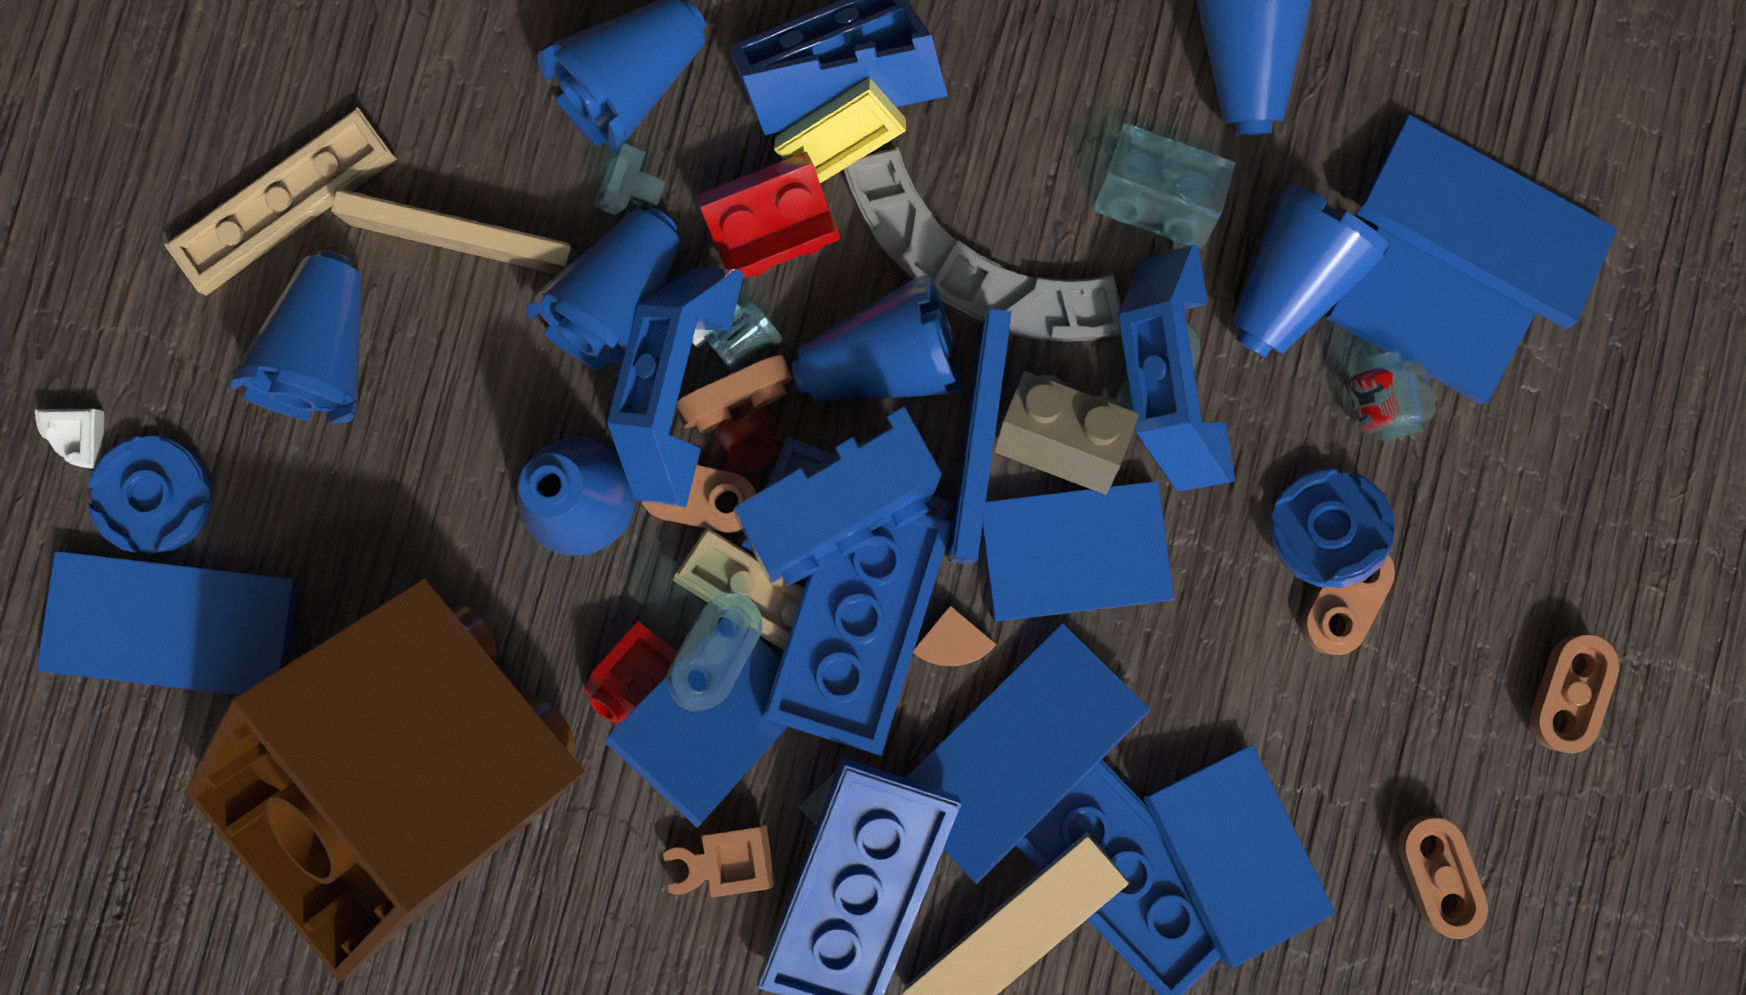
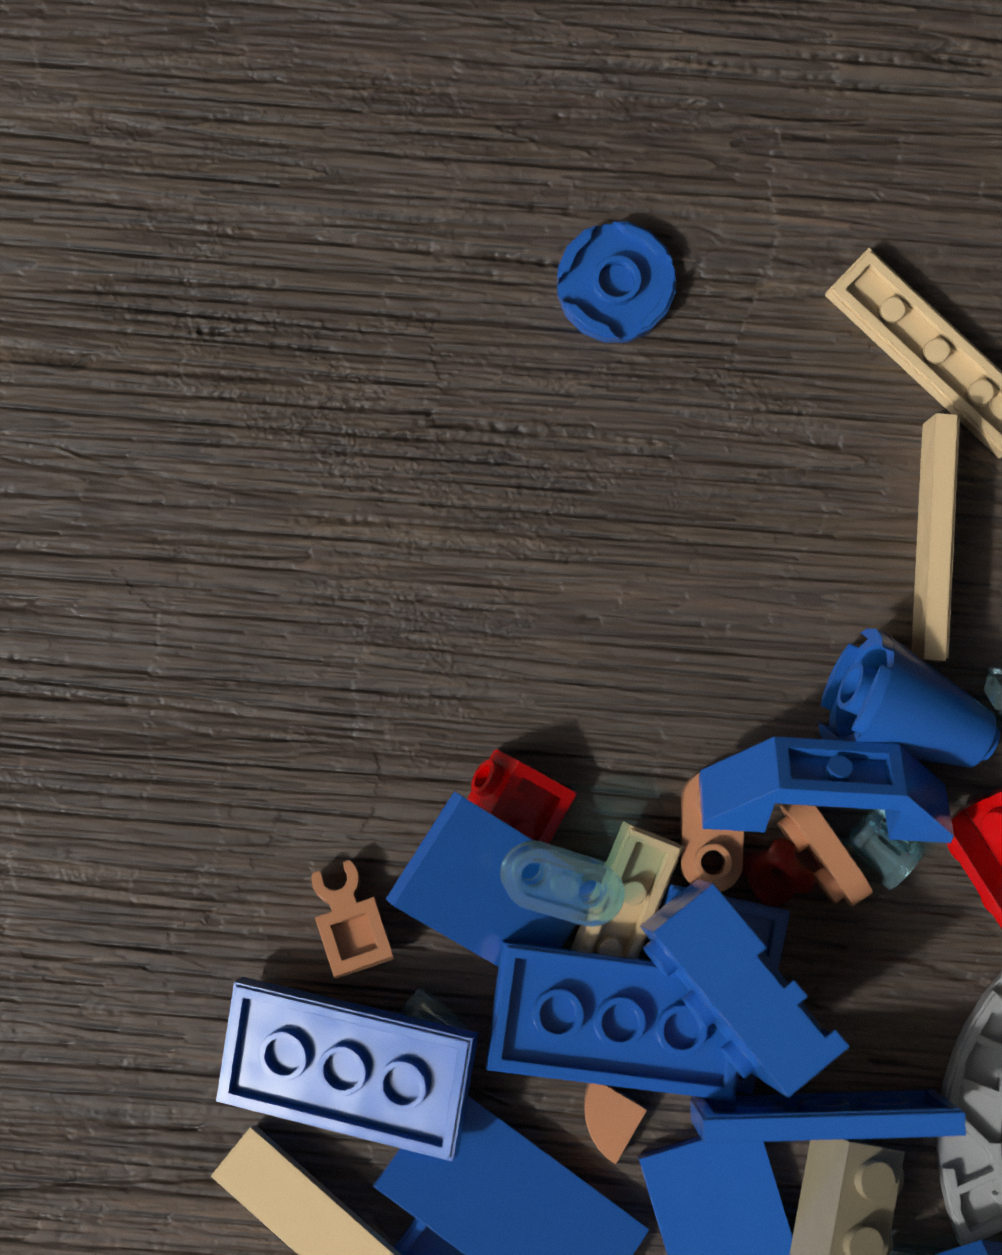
camera: 80 degrees right, 0 degrees up
(73, 434) = (662, 195): white tile -> none
(165, 624) = (491, 326): blue tile -> none
(308, 344) = (795, 415): blue cone -> none
(381, 772) = (383, 576): reddish brown brick -> none
(575, 496) = (665, 711): blue cone -> none
(884, 350) = (896, 998): blue cone -> none

